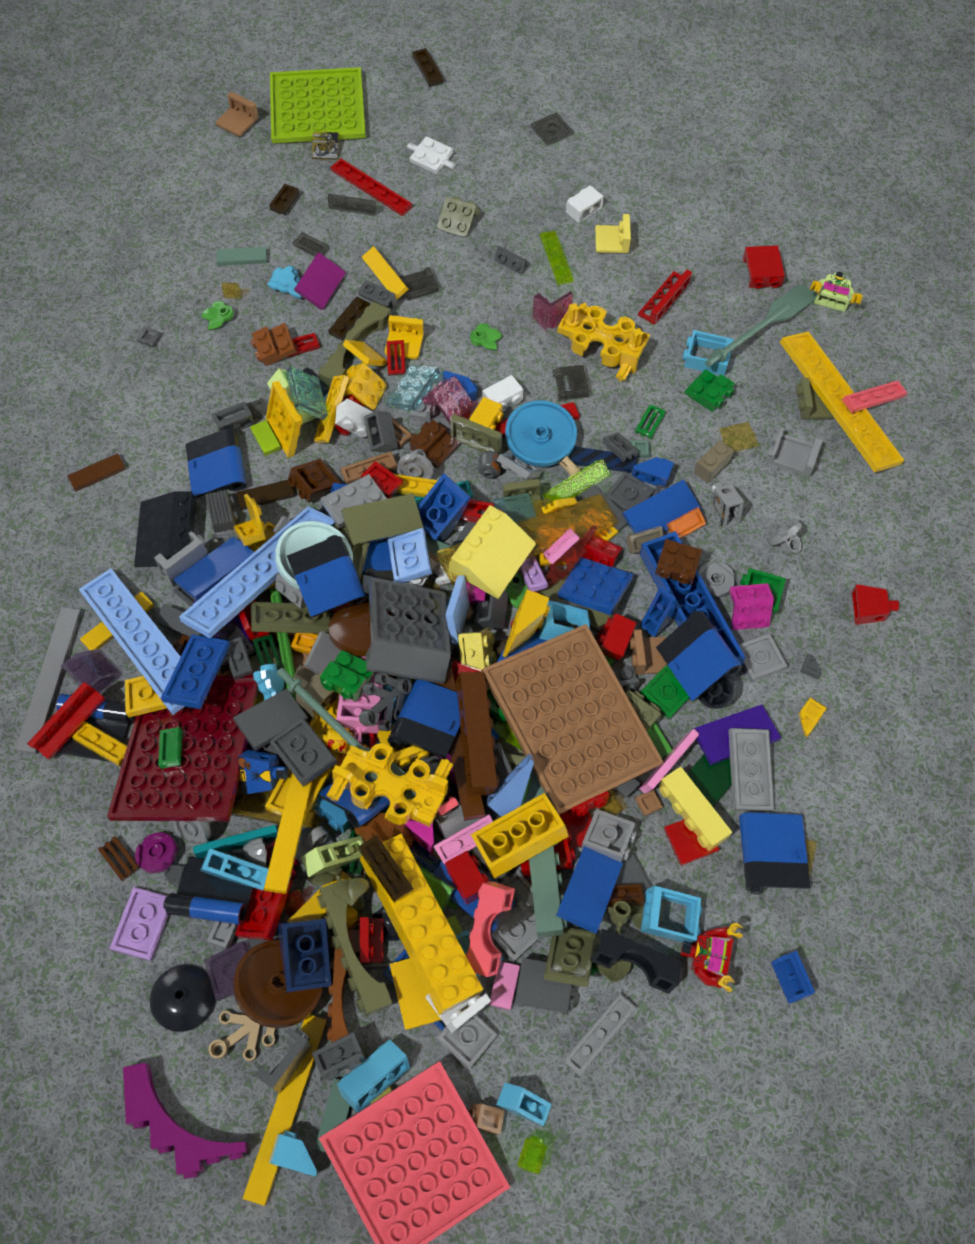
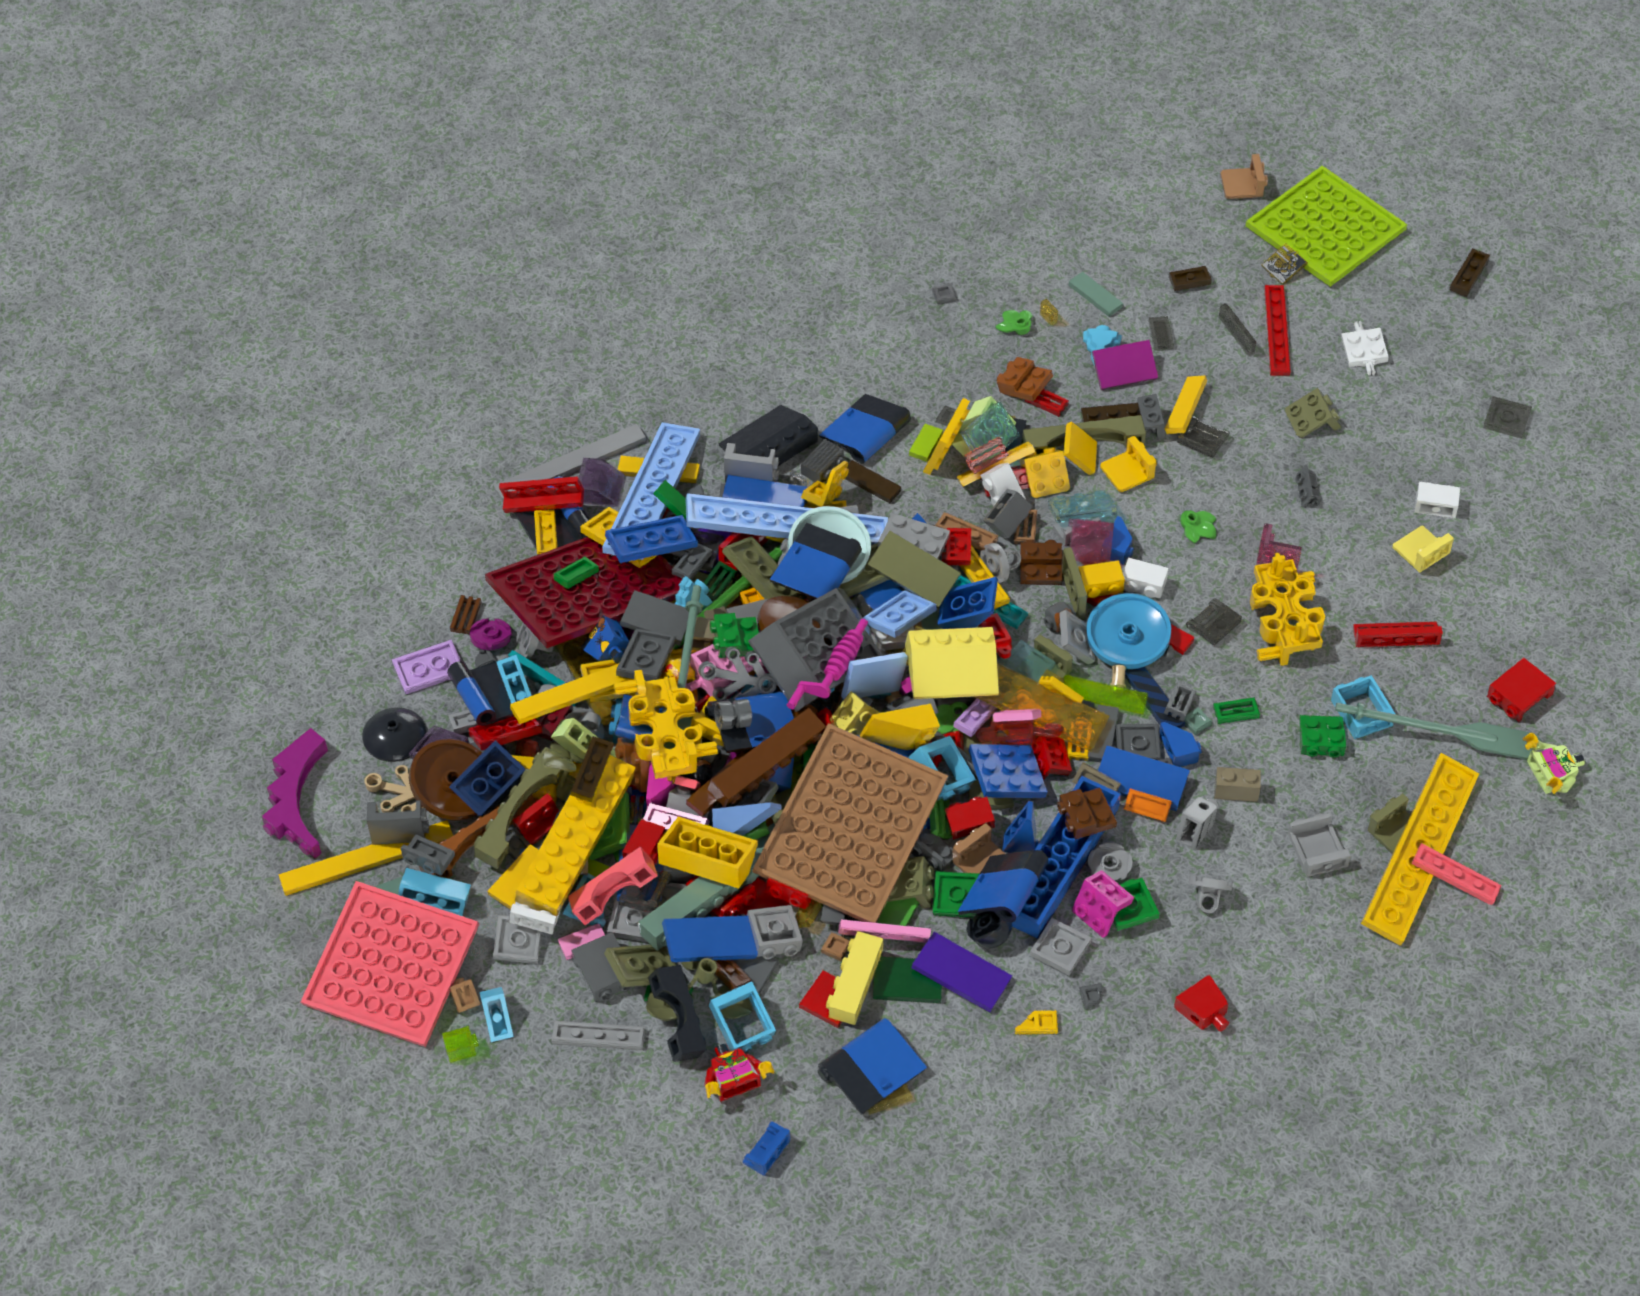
camera: 55 degrees right, 10 degrees down
(96, 472) = (778, 356): reddish brown tile -> none
(168, 630) = (671, 498): none -> green tile
(237, 421) = (920, 411): dark grey tile -> none
(292, 1154) = (333, 880): medium azure slope -> none
(312, 480) = (915, 498): reddish brown plate -> none
(327, 408) = (1003, 454): none -> clear red tile
(403, 370) = (1105, 476): red tile -> none
(422, 728) = (731, 714): none -> dark grey wheel
(436, 621) = (837, 665): none -> dark pink piece
(556, 257) = (1350, 520): clear neon green tile -> none
(739, 436) = (1292, 792): clear yellow piece -> none
(751, 770) = (935, 1001): light grey tile -> none

